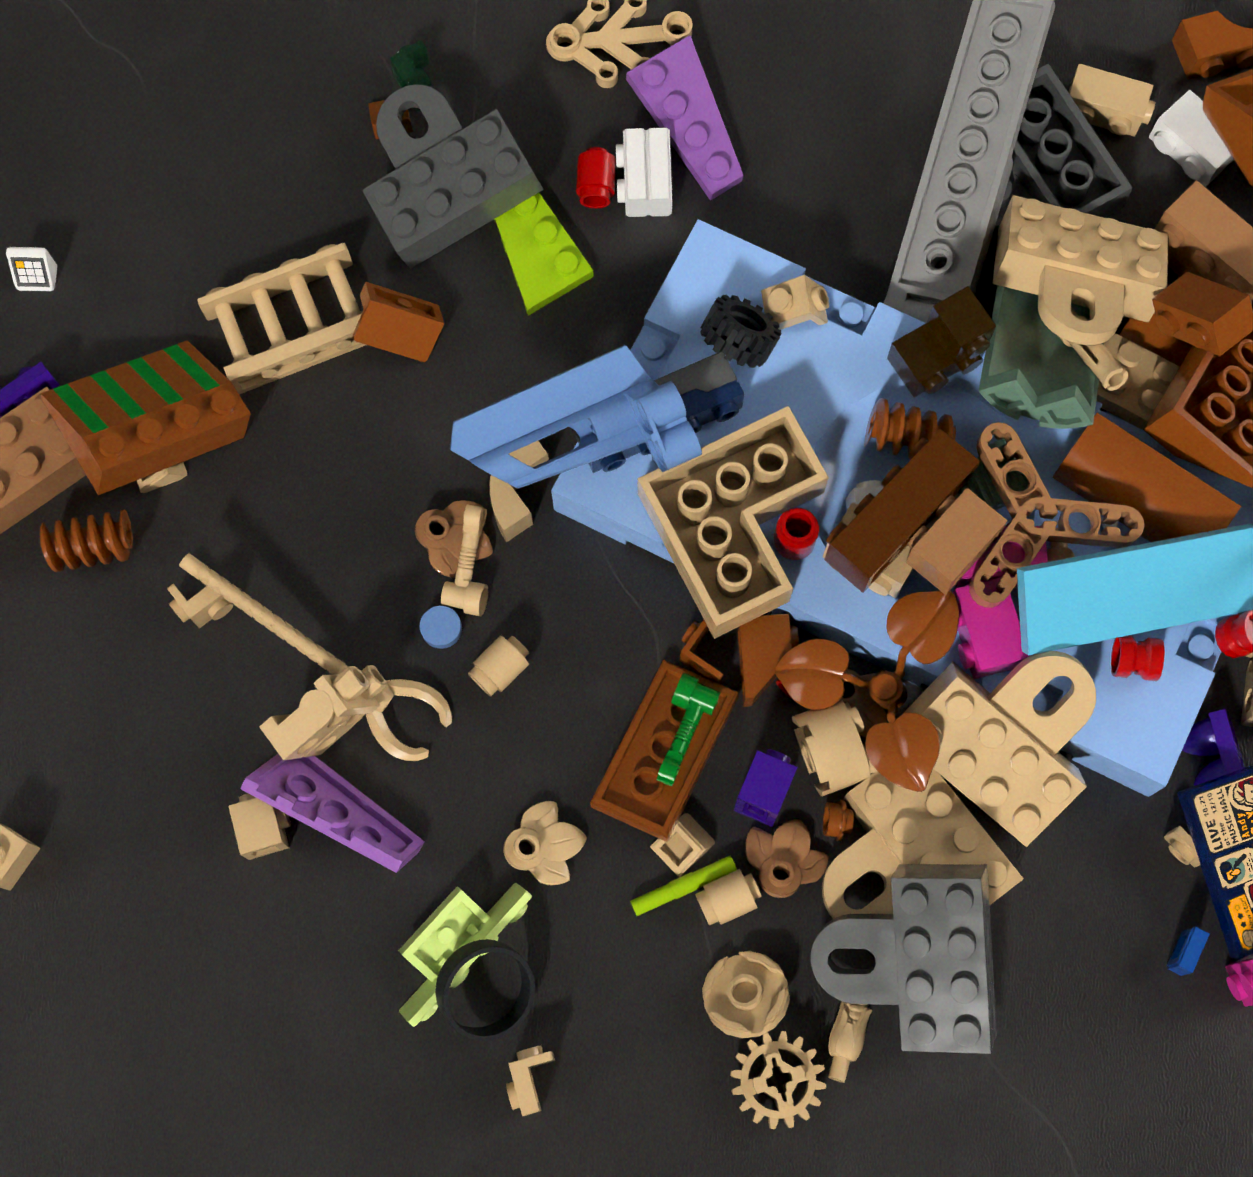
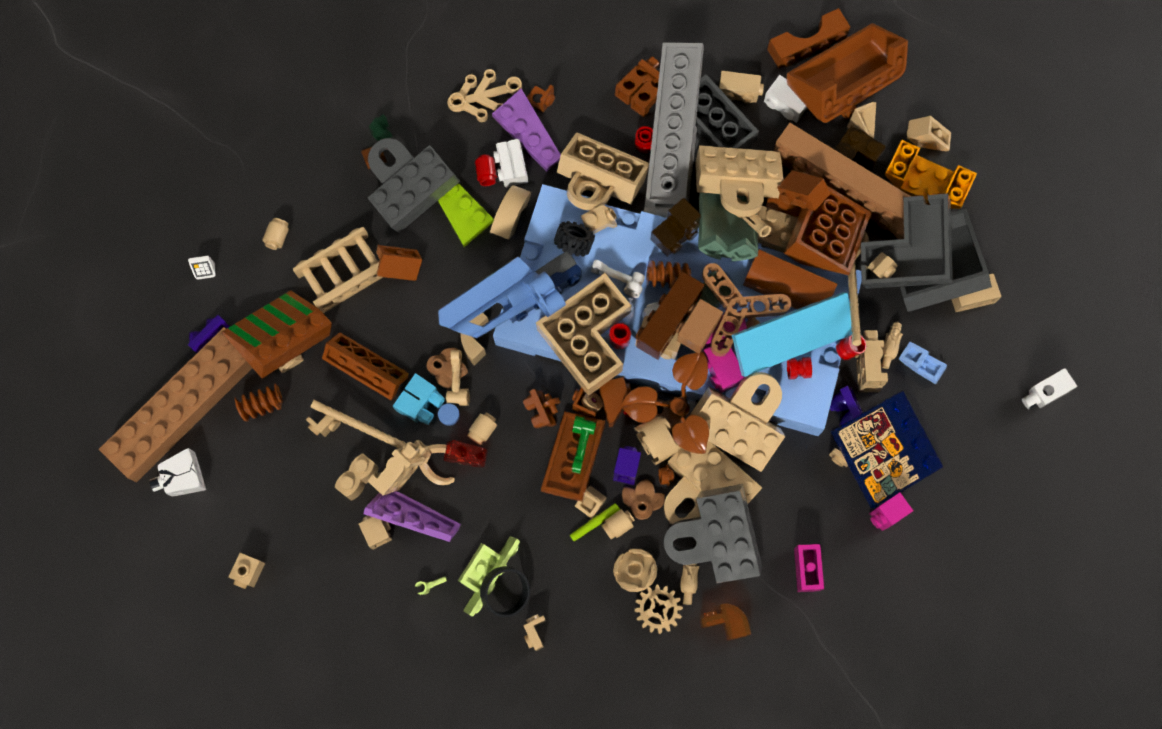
camera: 10 degrees left, 0 degrees up
(179, 229) = (275, 233): none -> tan brick
(235, 722) = (353, 481): none -> tan brick
(292, 507) = (362, 368): none -> dark orange fence
(345, 948) = (431, 584): none -> yellowish green hand
(382, 606) = (417, 408): none -> medium azure hips
(457, 708) = (465, 454): none -> clear red leg
(550, 842) = (523, 511): tan plate -> none
(626, 262) = (509, 212): none -> tan brick
(627, 643) = (546, 408): none -> dark orange hips
(719, 652) = (592, 402): none -> tan tile
(733, 64) = (545, 101): none -> dark orange bracket
(814, 213) = (600, 170): none -> tan brick
(840, 437) = (634, 283): none -> white brick
(906, 178) = (644, 144): none -> red wheel
(916, 69) = (640, 86): none -> dark orange hips
(921, 1127) = (731, 617): none -> clear orange brick
(1089, 1054) = (809, 568): none -> dark pink brick
(1187, 951) = (849, 508): blue tile -> none

